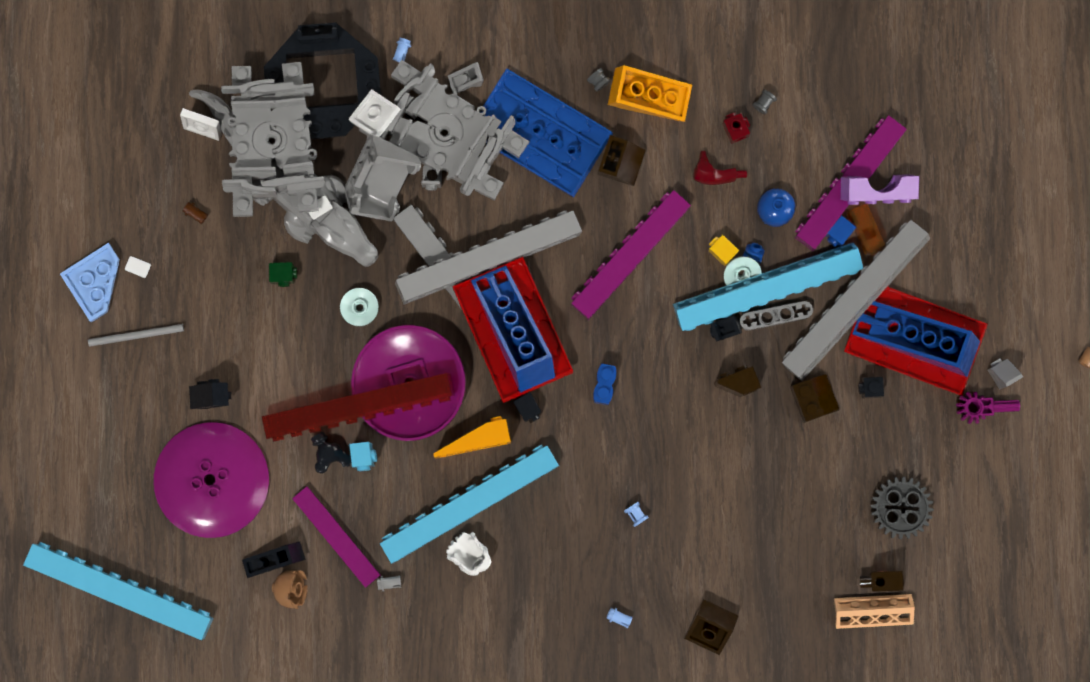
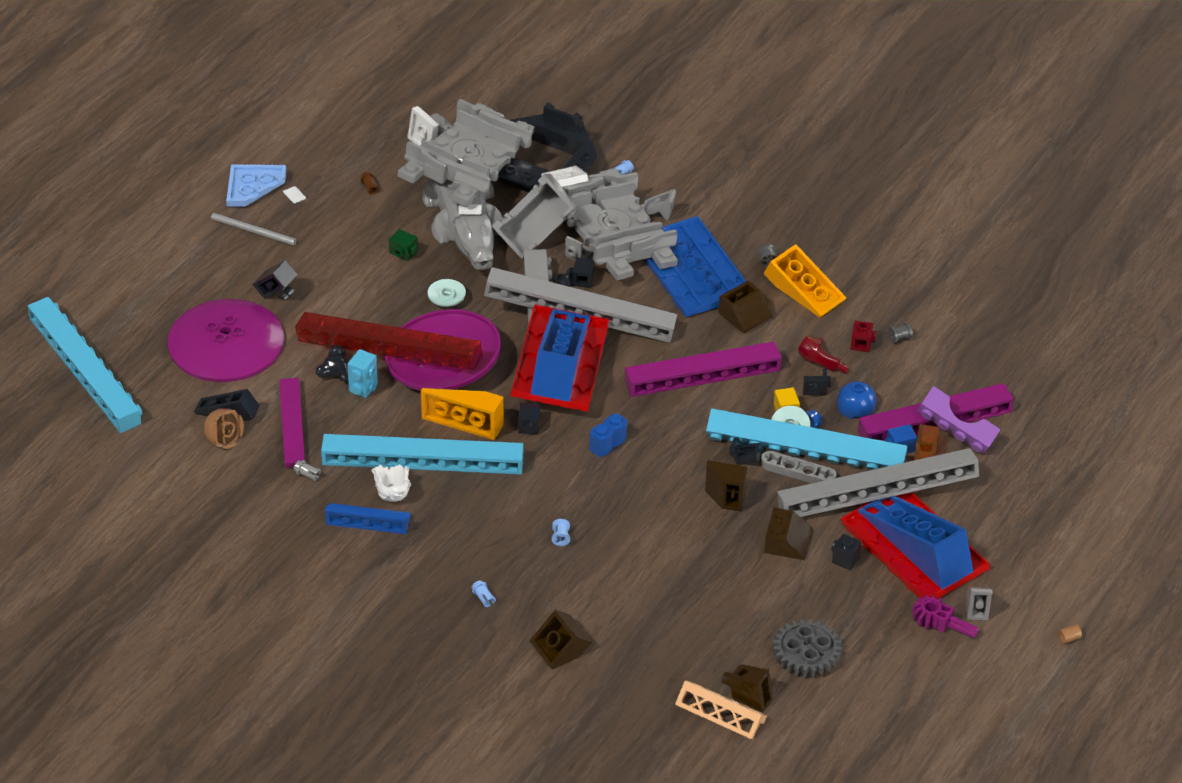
camera: 30 degrees right, 40 degrees down
(445, 222) = (564, 279): none -> black animal
(456, 204) = (583, 272): none -> black brick
(475, 604) = (367, 518): none -> blue fence
(733, 215) = (816, 384): none -> black bracket

